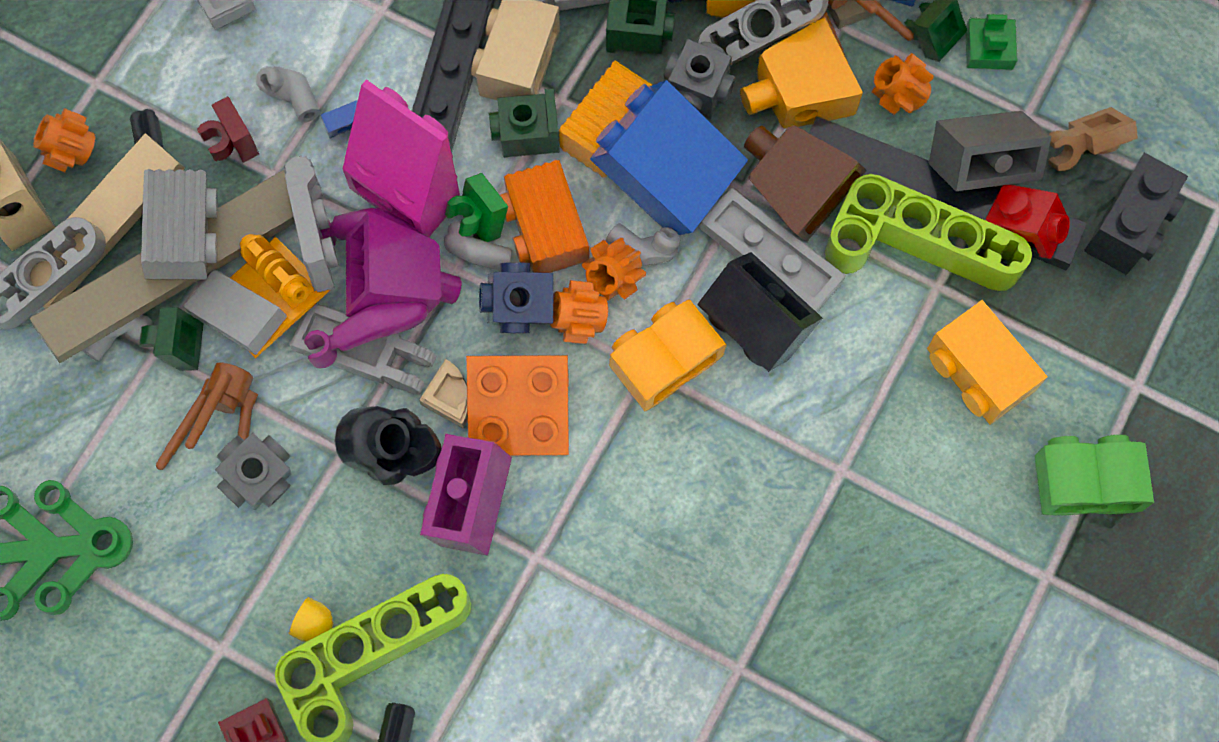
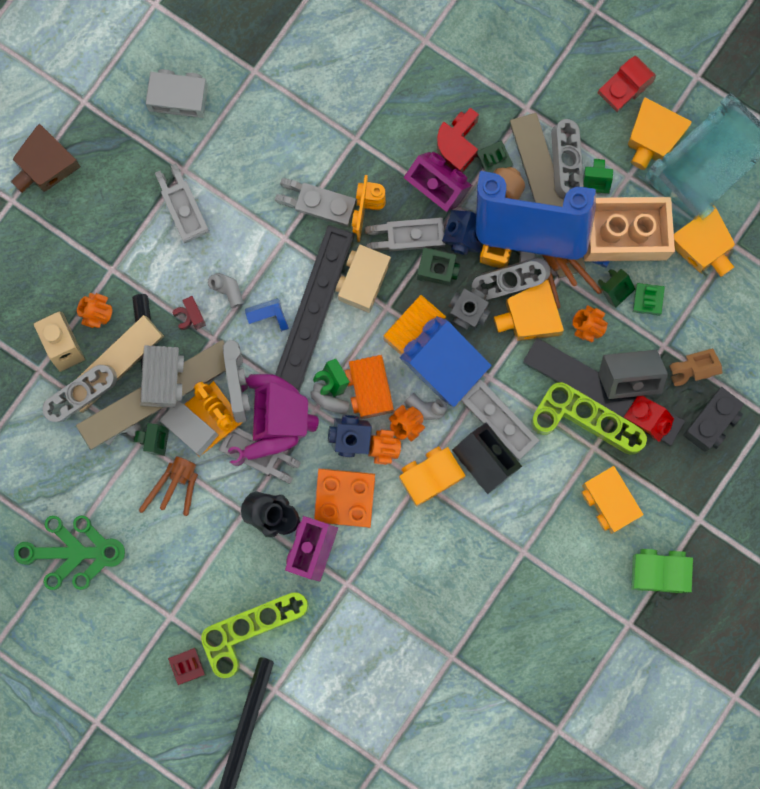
camera: 10 degrees right, 10 degrees up
(266, 487) = (187, 514): dark grey brick -> none
(311, 620) = (222, 609): yellow hinge -> none
(400, 159) = (289, 355): dark pink slope -> none
(447, 394) = (305, 485): tan tile -> none
(536, 134) = (372, 333): dark green brick -> none
(801, 176) = (521, 378): reddish brown torso -> none

